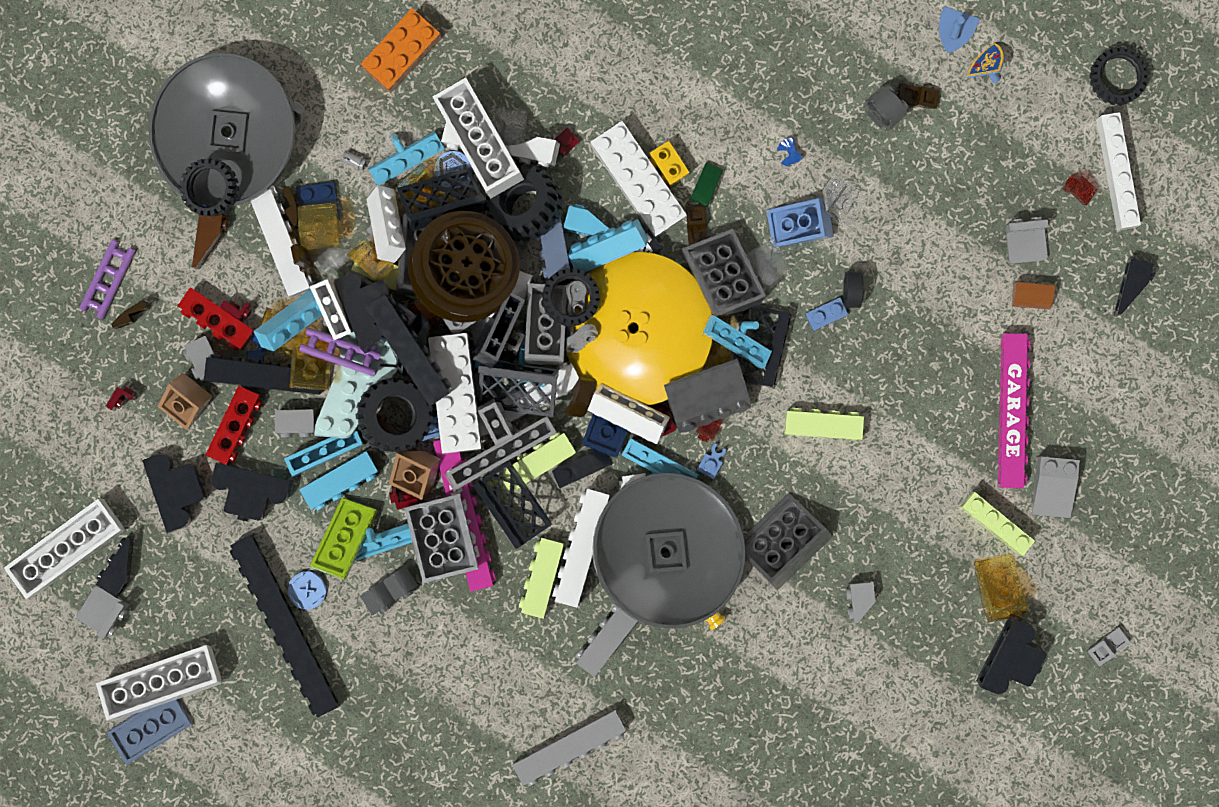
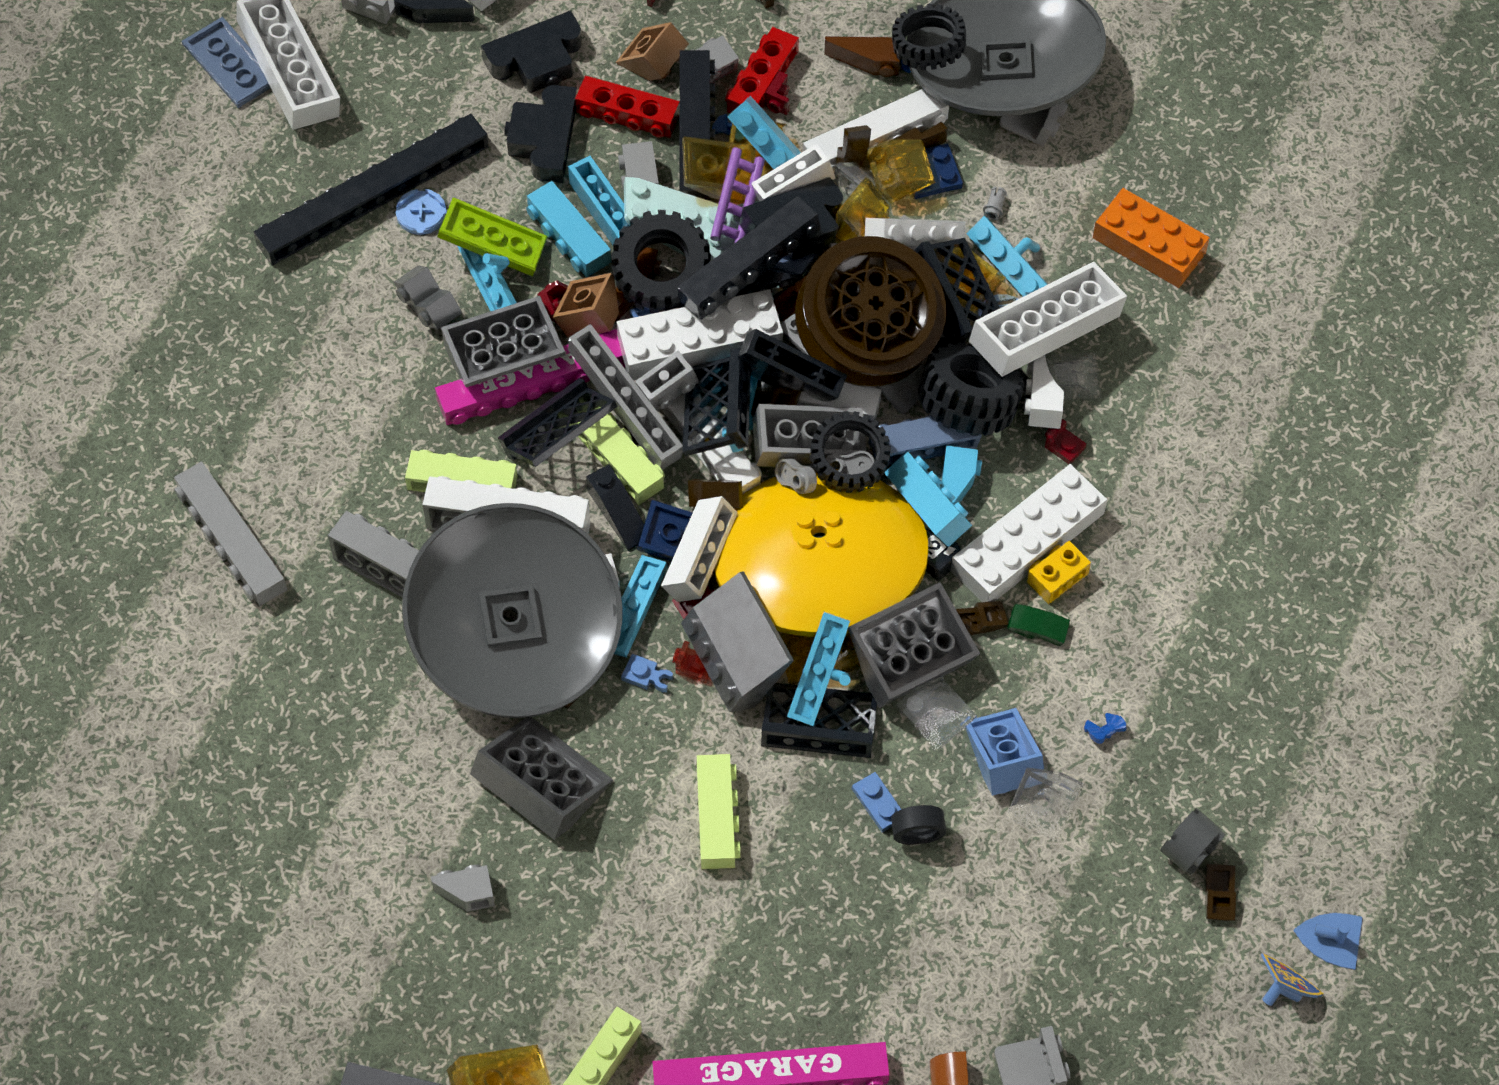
camera: 80 degrees right, 25 degrees down
(715, 620) = (423, 696): yellow wheel -> none

